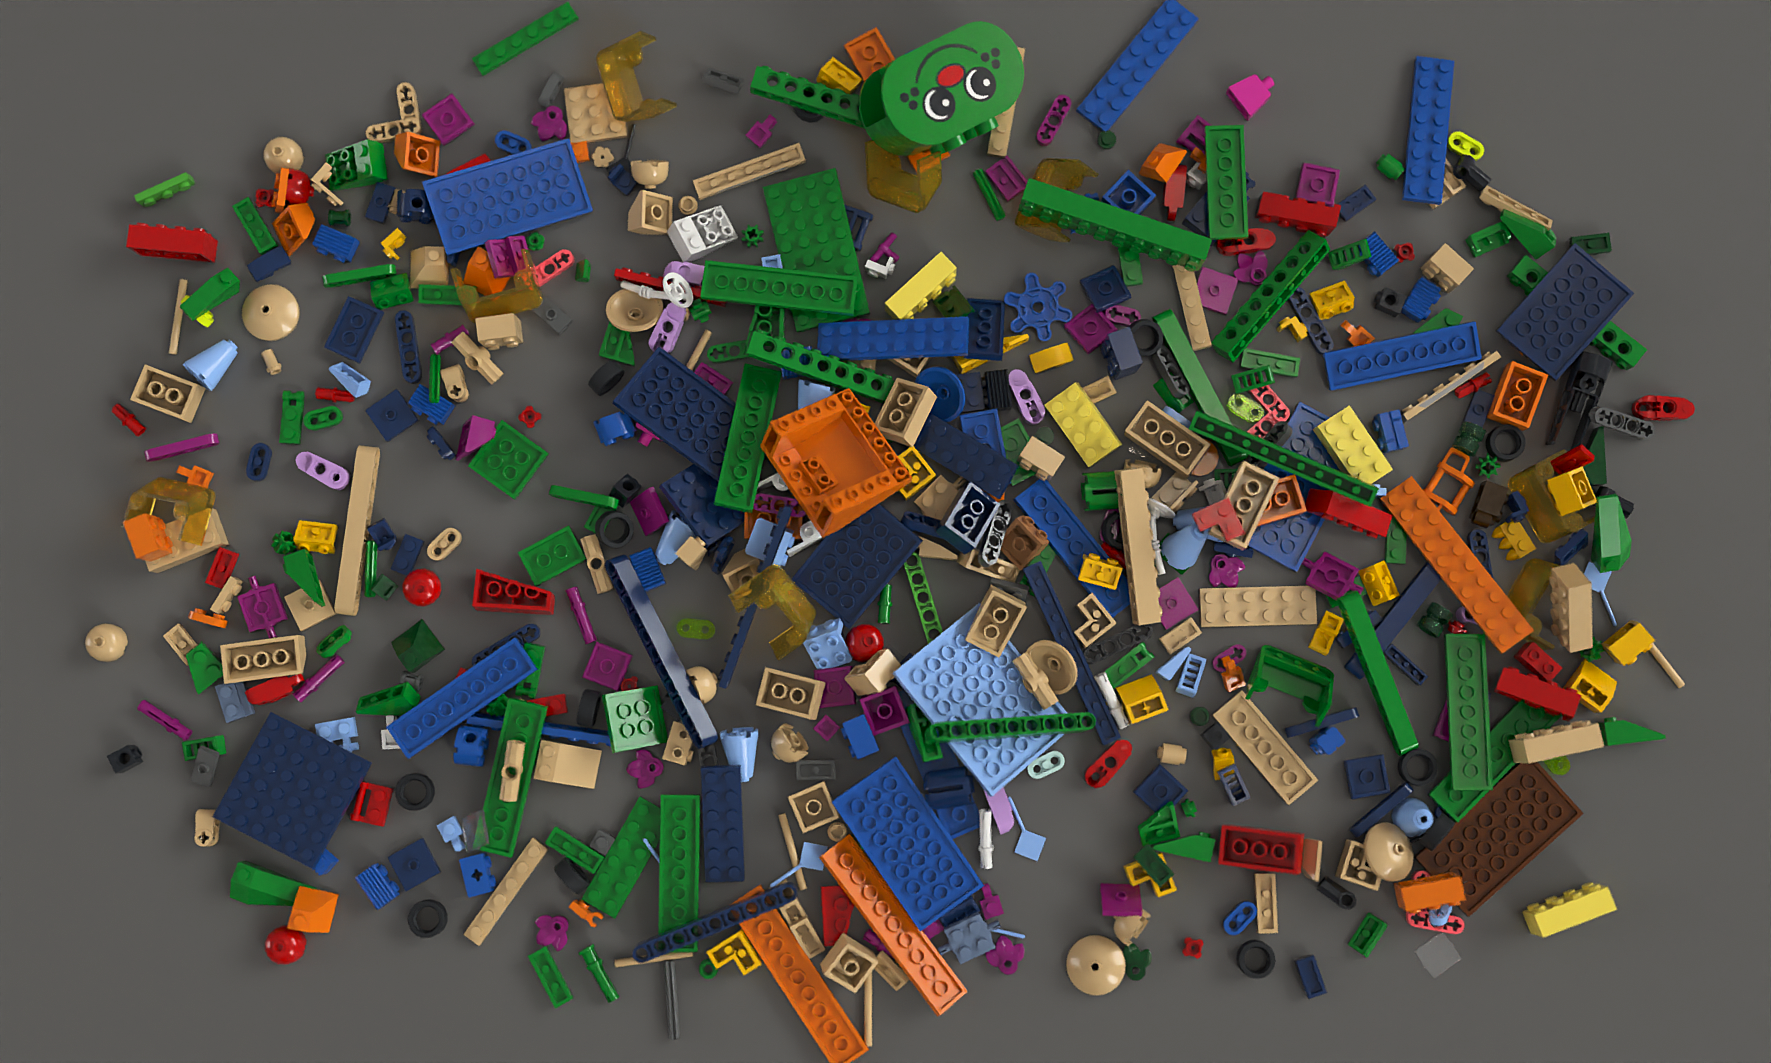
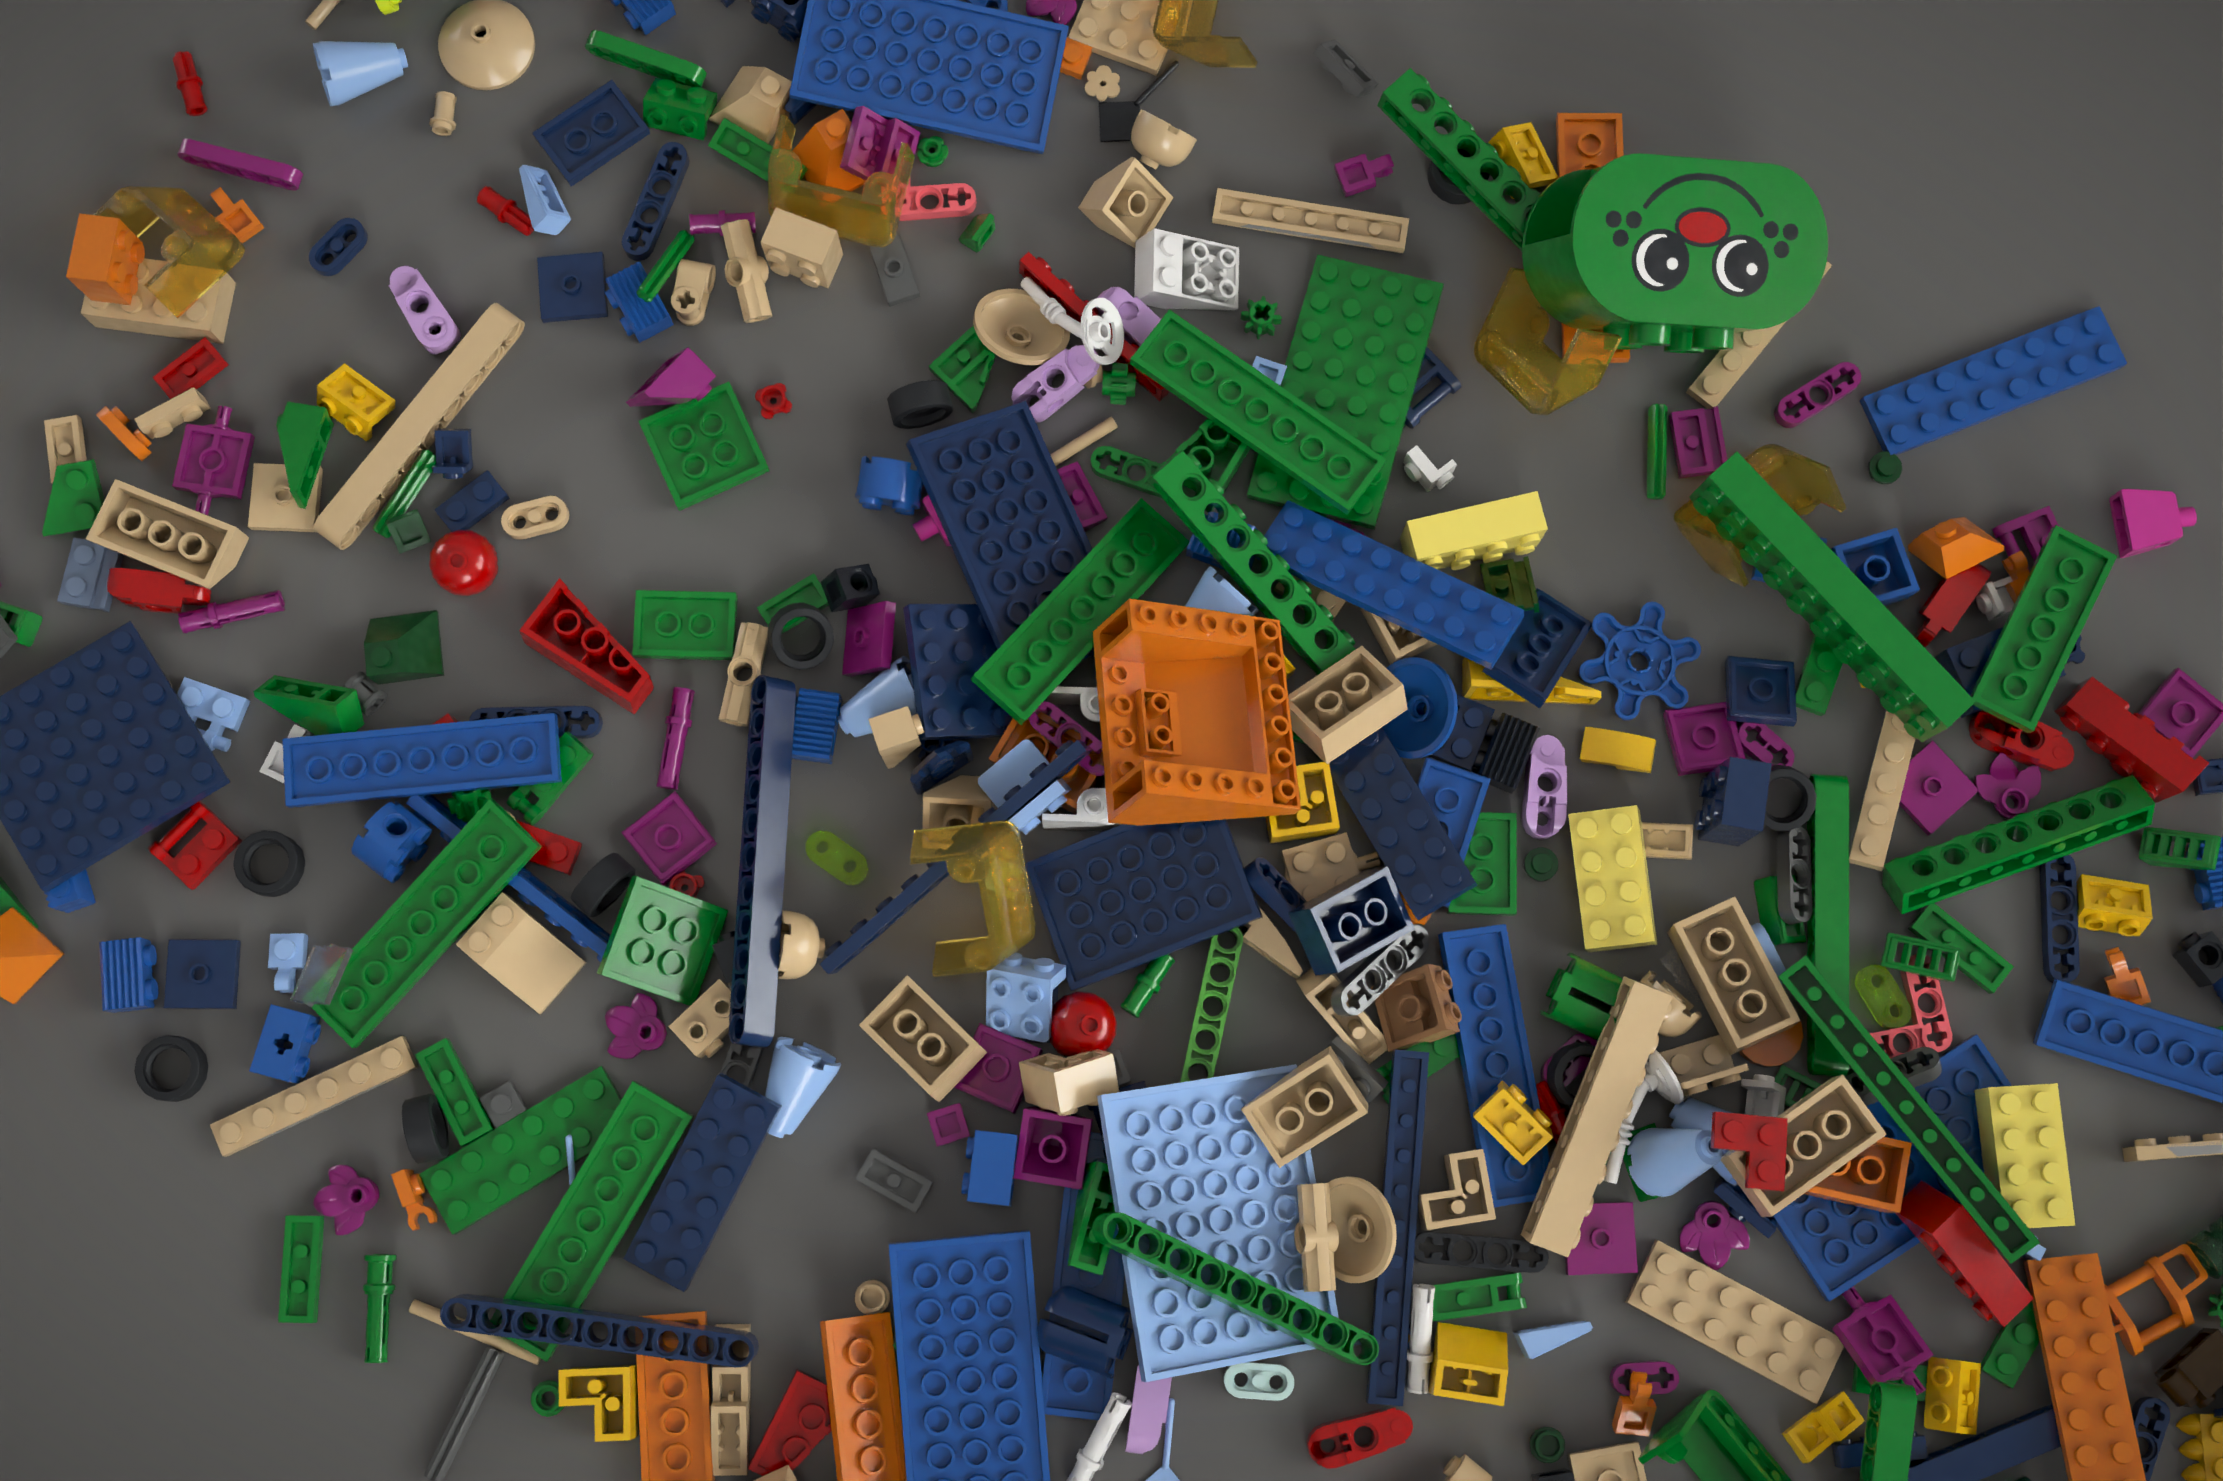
camera: 25 degrees right, 5 degrees down
(167, 393) = (267, 75): tan brick -> none
(283, 543) = (301, 383): green gear -> none
(292, 417) = (425, 210): green plate -> none
(324, 418) = (471, 235): green plate -> none
(334, 641) = (286, 569): green plate -> none
(393, 241) = (723, 37): yellow bracket -> none
(445, 450) = (616, 353): dark blue plate -> none
(510, 782) = (415, 929): tan piece -> none
(583, 497) = (783, 562): green beam -> none
(622, 179) = (1112, 130): dark blue bracket -> none
(688, 205) = (1189, 220): tan plate -> none
(788, 745) = (873, 1116): tan cylinder -> none
(792, 850) = (785, 1289): tan bar -> none
(809, 859) = (802, 1315): light blue piece -> none
(813, 807) = (857, 1237): tan brick -> none
(883, 248) = (1450, 444): magenta piece -> none
(1040, 459) = (1516, 893): tan brick -> none
(1180, 635) = (1585, 1297): tan plate -> none
(1191, 692) = (1548, 1391): light blue slope -> none
(1296, 328) = (2031, 917): yellow bracket -> none
(1390, 431) = (2099, 1162): blue brick -> none

